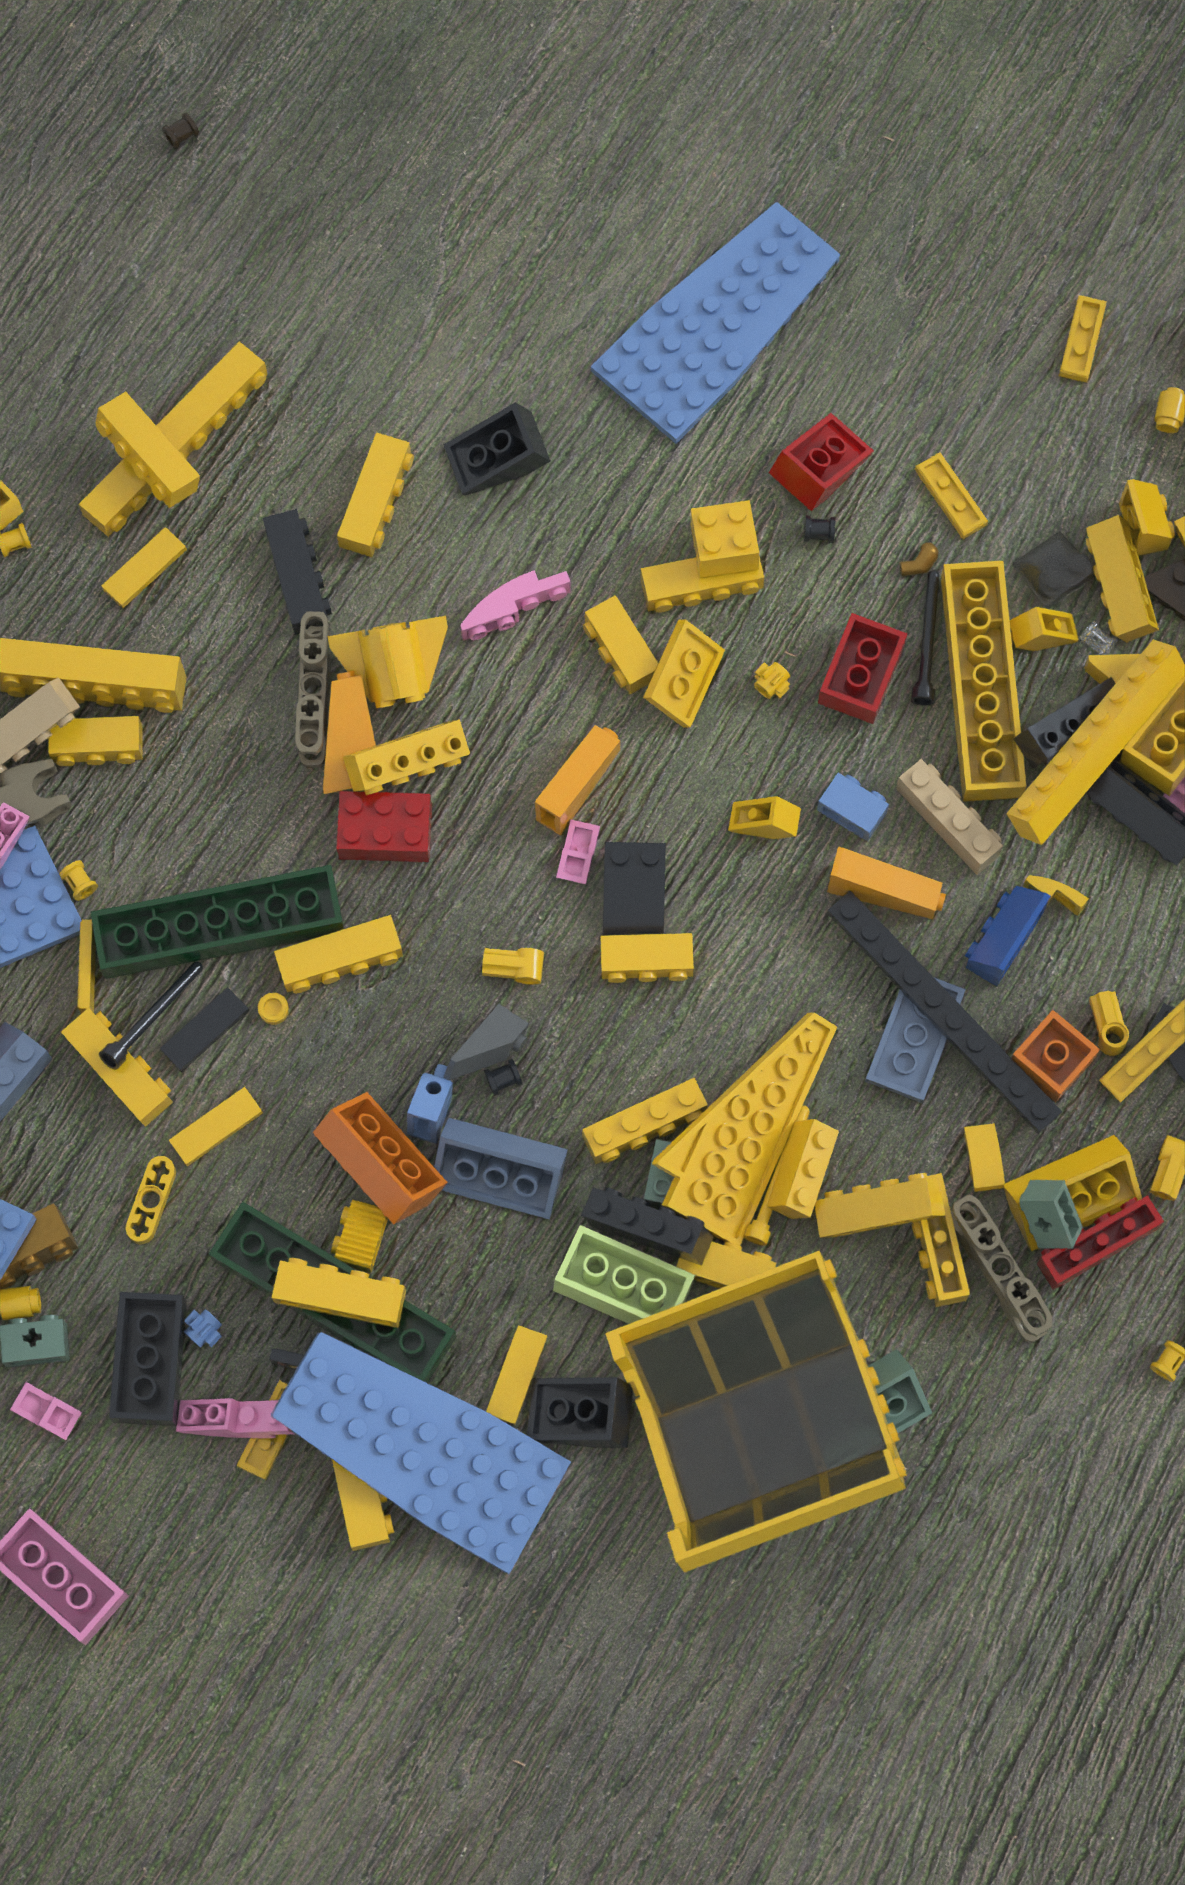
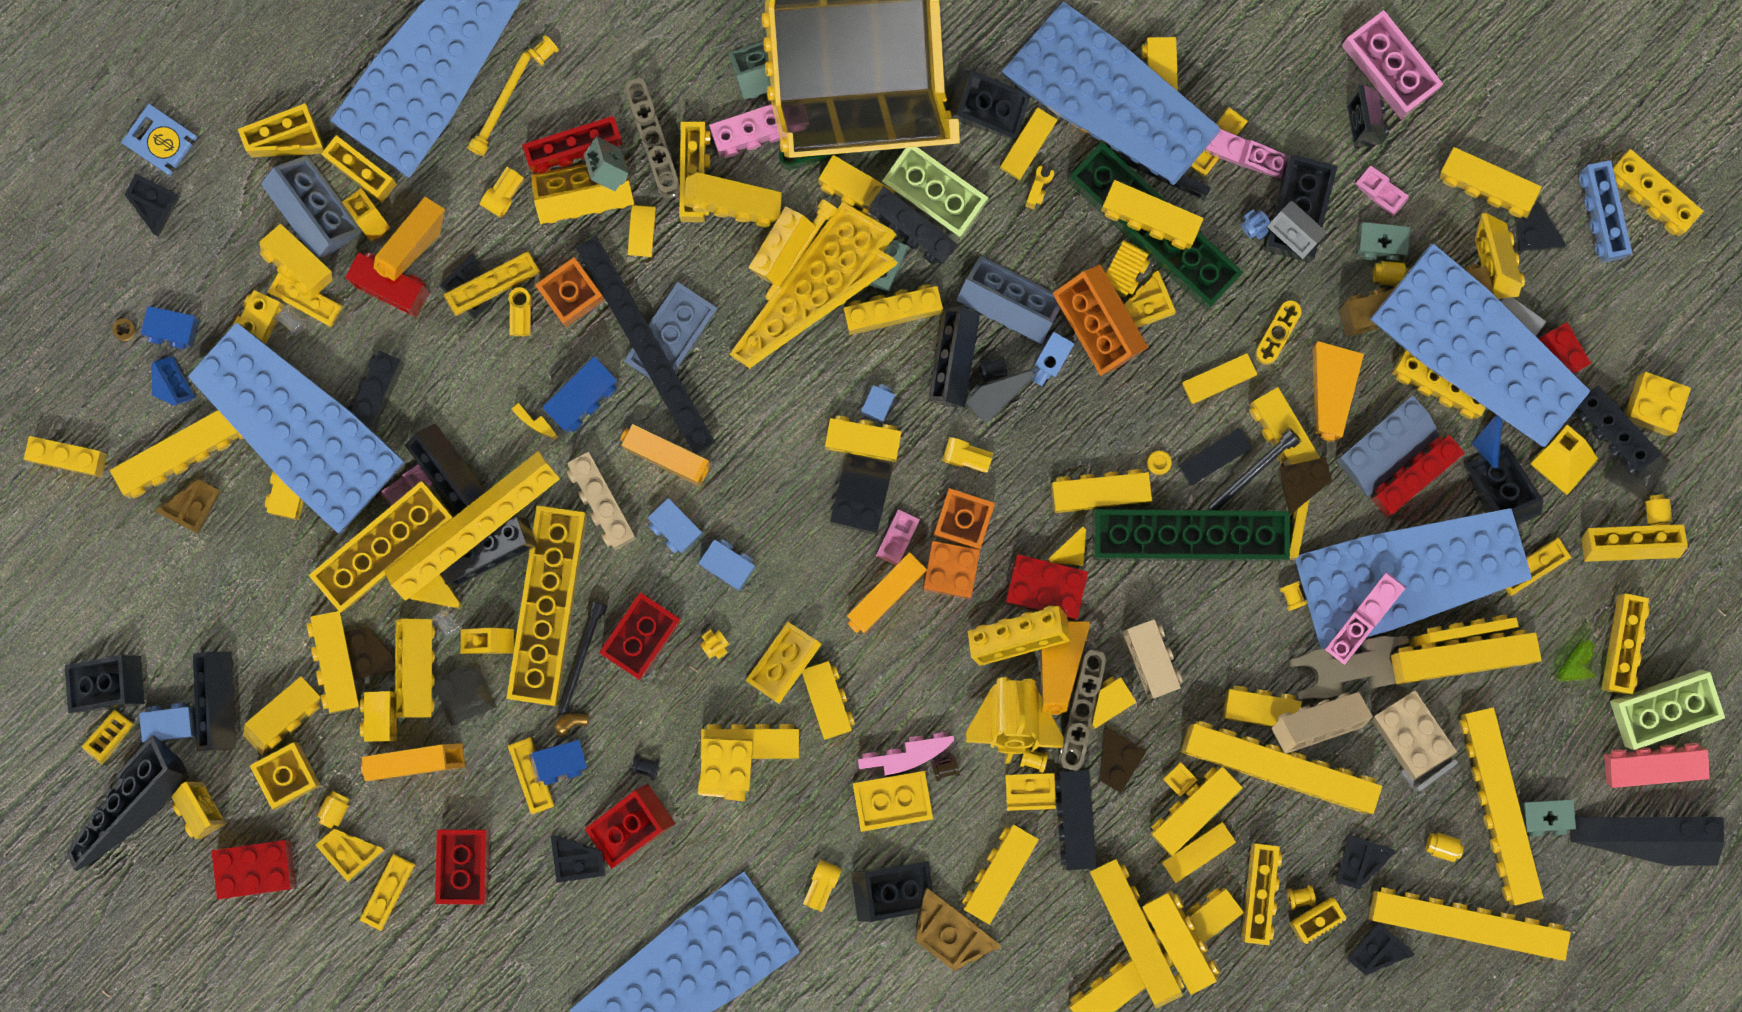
camera: 175 degrees left, 10 degrees up
(62, 530) = (1260, 894): none -> yellow brick
(68, 1146) = (1334, 385): none -> light orange slope
(78, 1494) = (1366, 117): none -> black slope
(88, 1007) = (1303, 481): none -> dark brown wing
(147, 1319) = (1297, 229): none -> light grey panel
(157, 604) = (1195, 810): none -> yellow brick
(181, 642) = (1180, 779): none -> yellow plate
(196, 442) = (1136, 933): none -> yellow brick
(238, 765) = (1152, 659): none -> tan brick
(258, 651) = (1118, 760): none -> dark brown wing
(276, 705) = (1111, 700): none -> yellow slope
(322, 1200) = (1150, 302): none -> yellow wing
(357, 593) = (1030, 791): none -> yellow plate
(358, 624) = (1034, 759): none -> yellow bush
(363, 877) = (1072, 551): none -> yellow slope
(419, 417) = (950, 934): none -> pearl gold wing
(463, 598) = (945, 768): none -> dark brown bush
(493, 1310) = (1037, 194): none -> yellow plate
(501, 883) = (964, 519): none -> orange brick
(504, 823) = (951, 570): none -> orange brick
(518, 548) = (892, 801): none -> yellow plate
(555, 1077) = (954, 357): none -> black brick
(580, 447) = (823, 881): none -> yellow piece
(637, 1004) = (878, 403): none -> medium blue brick
(765, 818) = (746, 531): yellow slope -> none
(778, 774) = (727, 564): none -> medium blue brick
(874, 412) = (576, 860): none -> black wing
(889, 1307) = (745, 131): none -> bright pink brick
(923, 510) = (557, 762): none -> blue brick
(1004, 375) = (462, 866): none -> red brick
(1090, 477) = (413, 762): none -> light orange slope
(1140, 368) = (347, 853): none -> yellow wing

